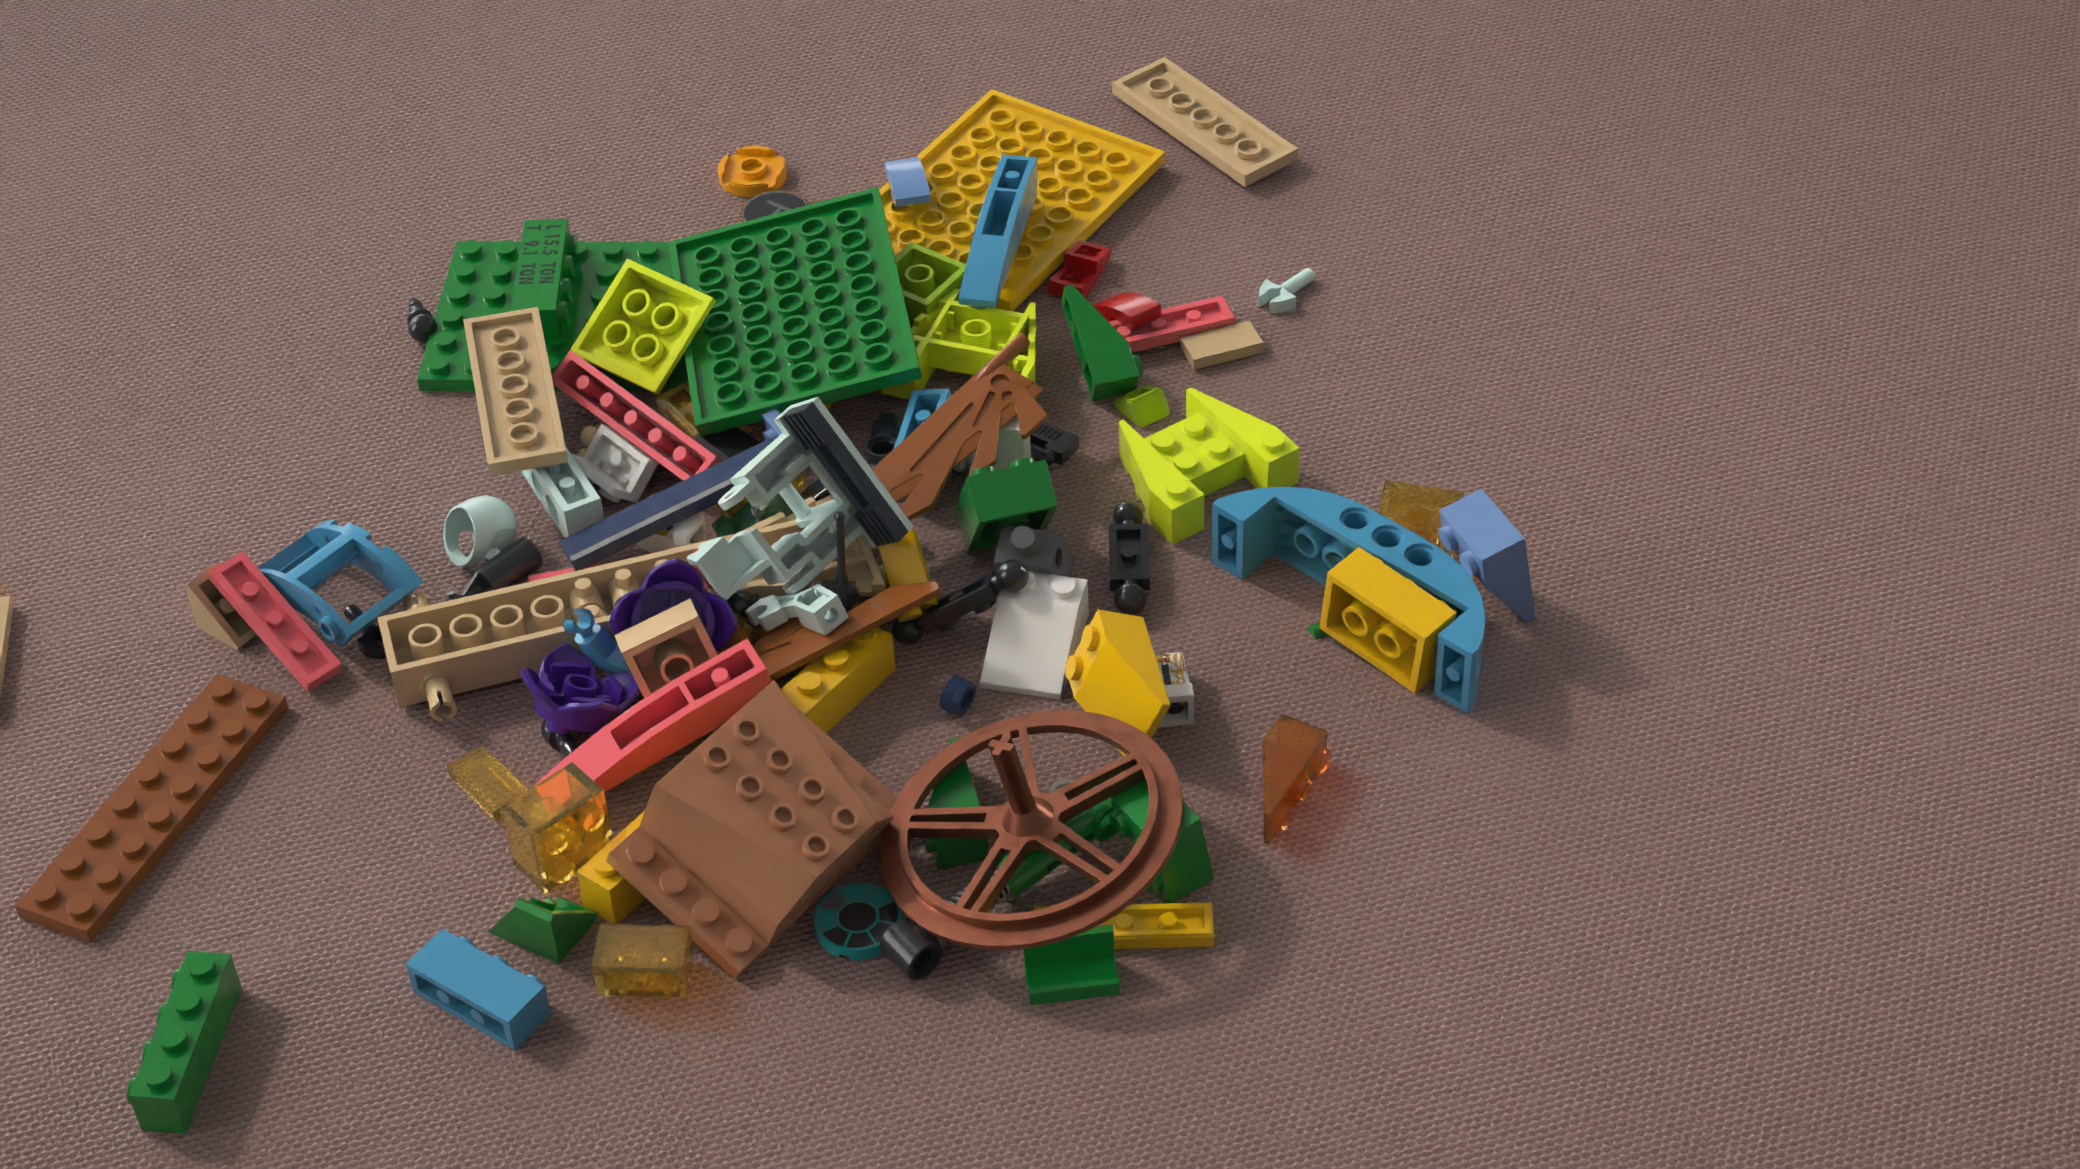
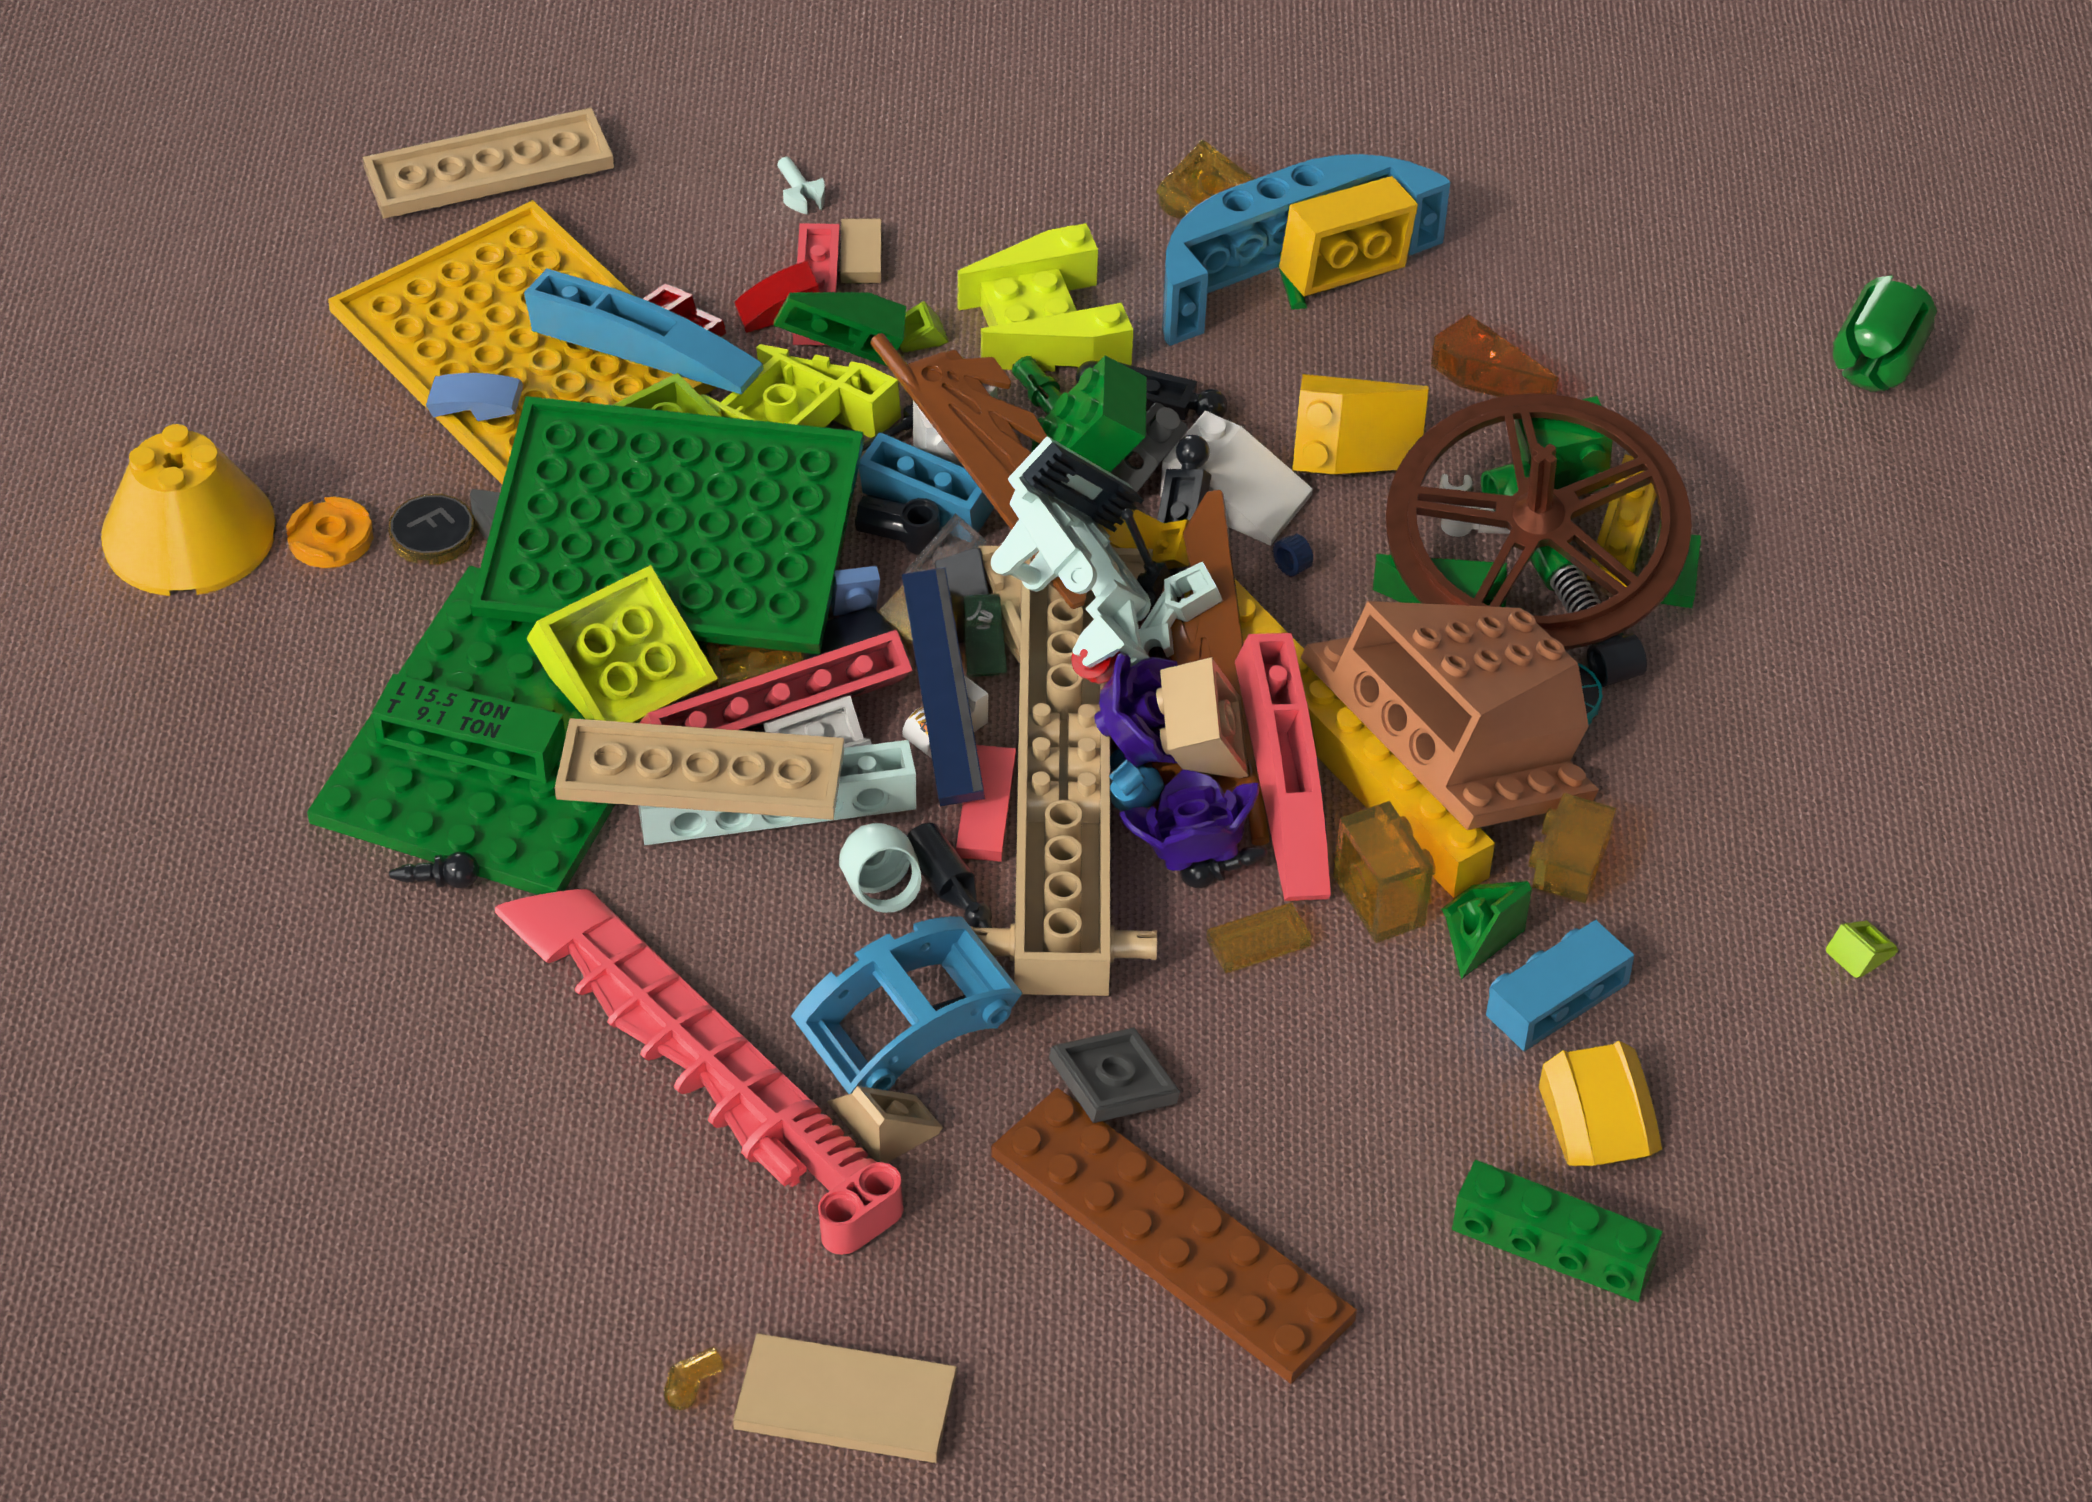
camera: 75 degrees left, 5 degrees up
(275, 621) = (954, 1063): coral plate -> none
(302, 724) = (1114, 1075): none -> dark grey tile
(303, 473) = (750, 1094): none -> coral piece
(342, 1054) = (1600, 1105): none -> yellow slope
(725, 93) = (185, 517): none -> yellow cone
(1096, 493) = (1032, 377): none -> green pin
(1476, 1063) = (1884, 334): none -> green cylinder
(1489, 549) = (1316, 128): medium blue slope -> none

